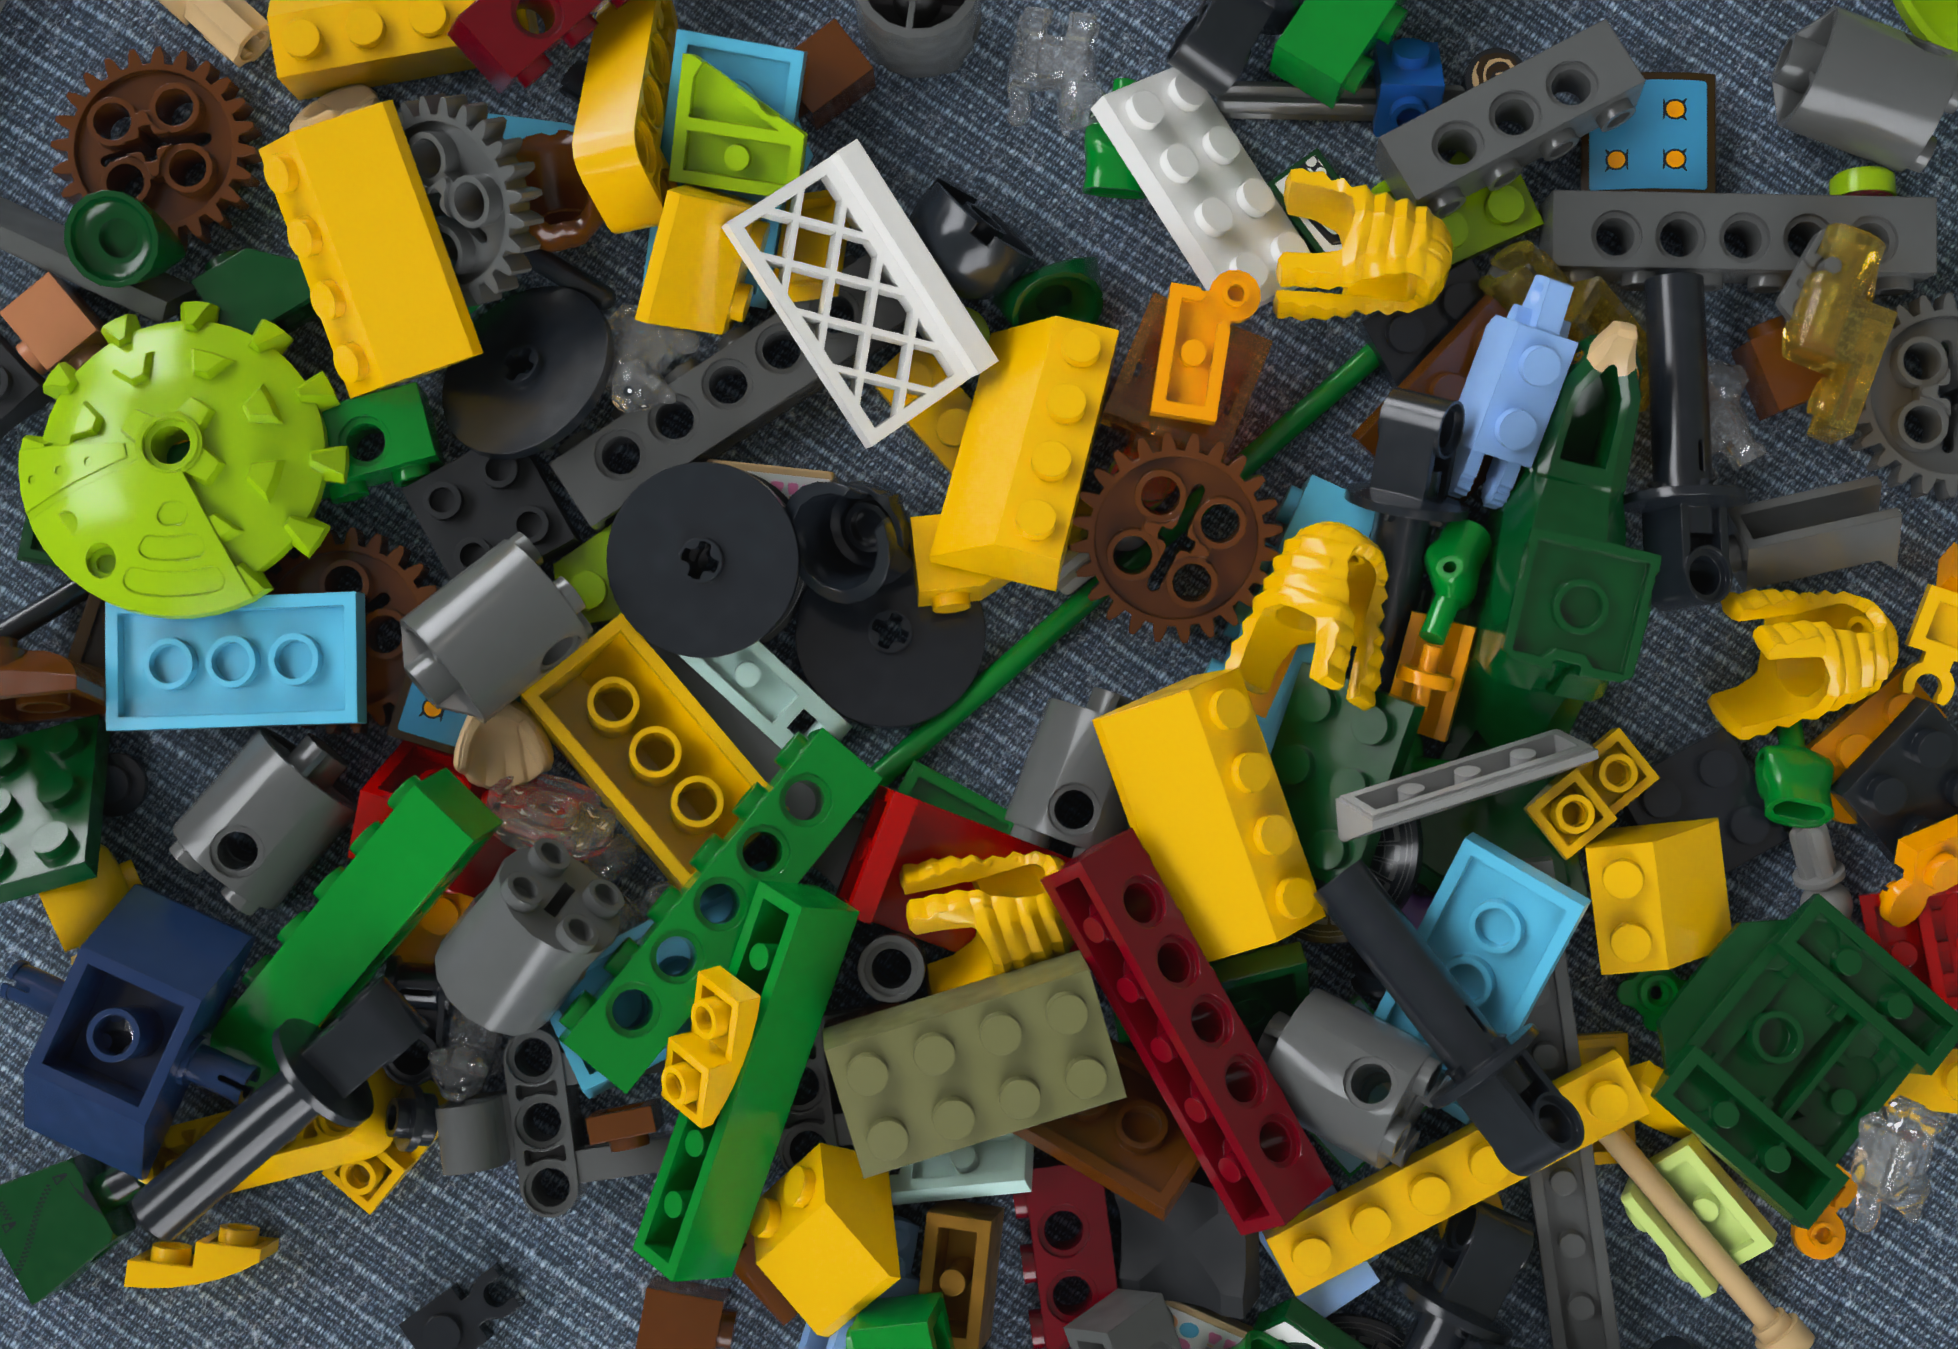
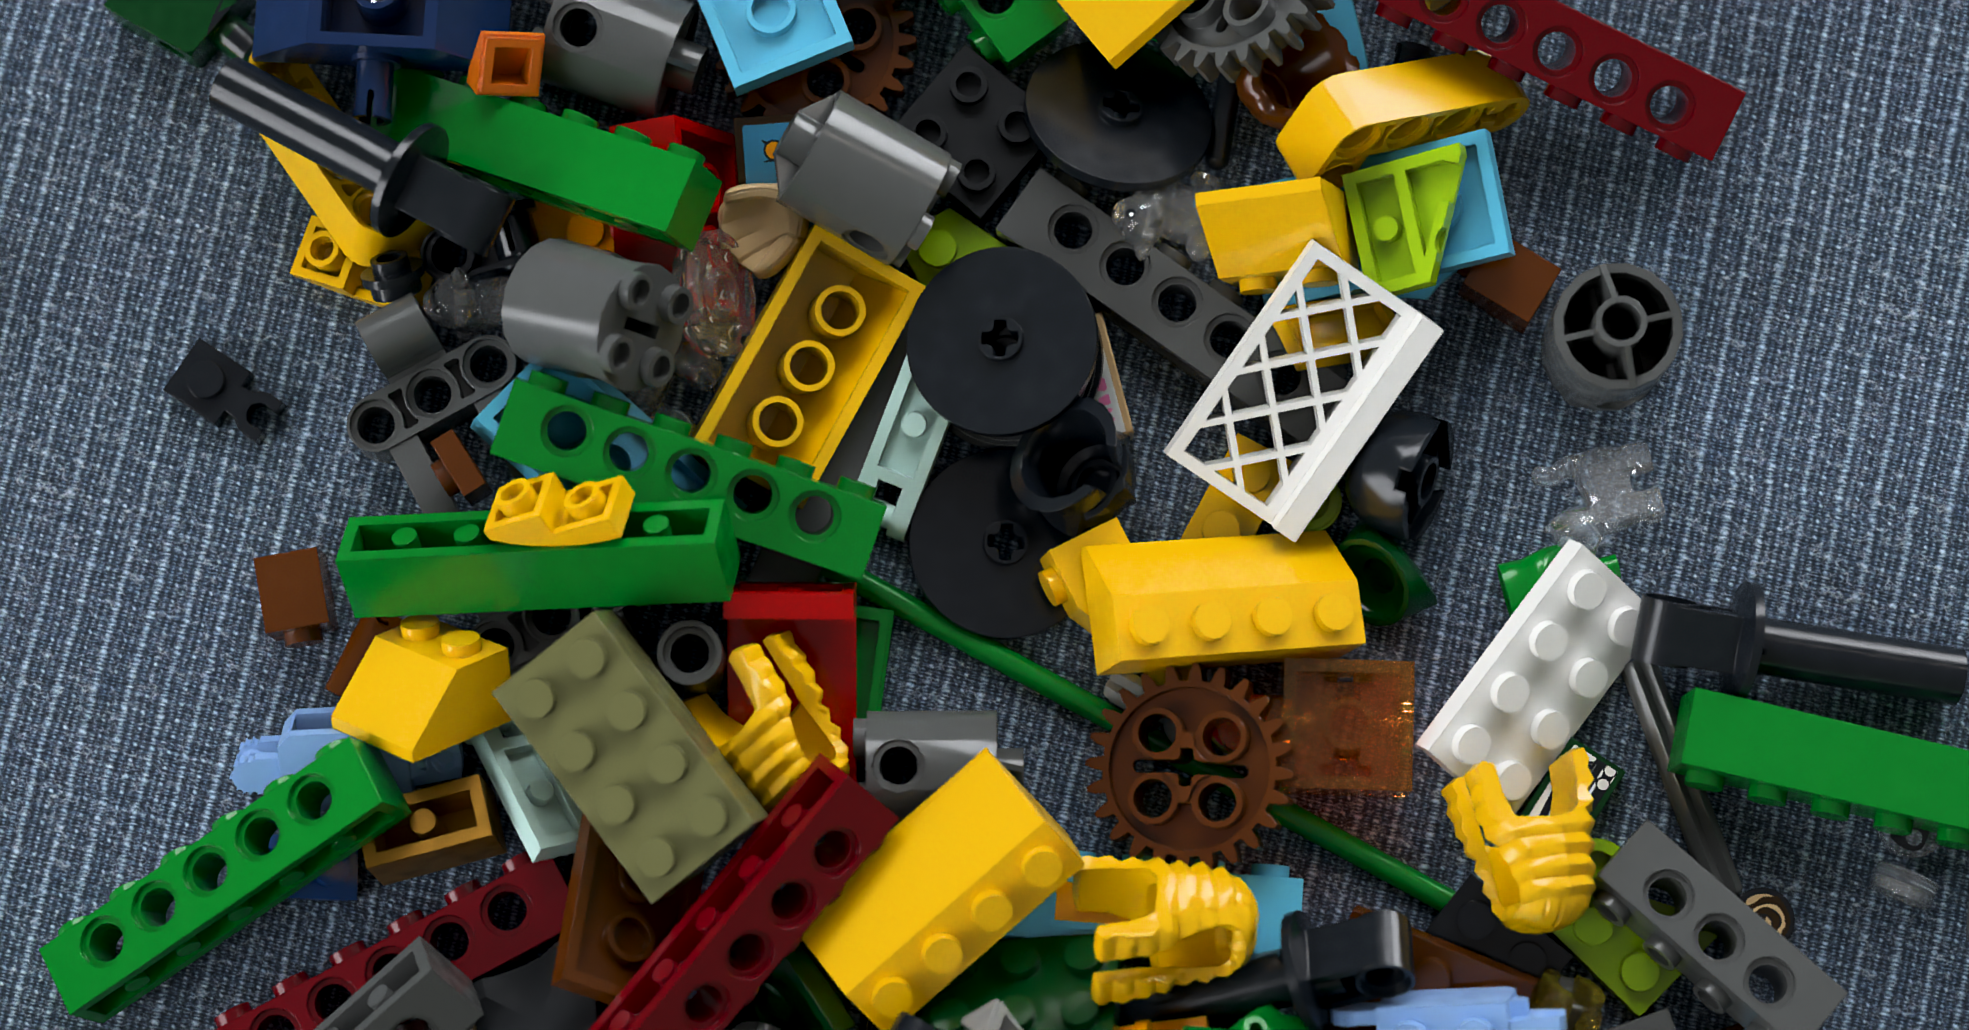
camera: 75 degrees right, 5 degrees down
(215, 1257) = (202, 149): yellow slope -> none
(245, 933) = (507, 63): none -> orange slope
(1197, 345) = (1377, 717): light orange hinge -> none
(1406, 82) = (1722, 832): blue bracket -> none

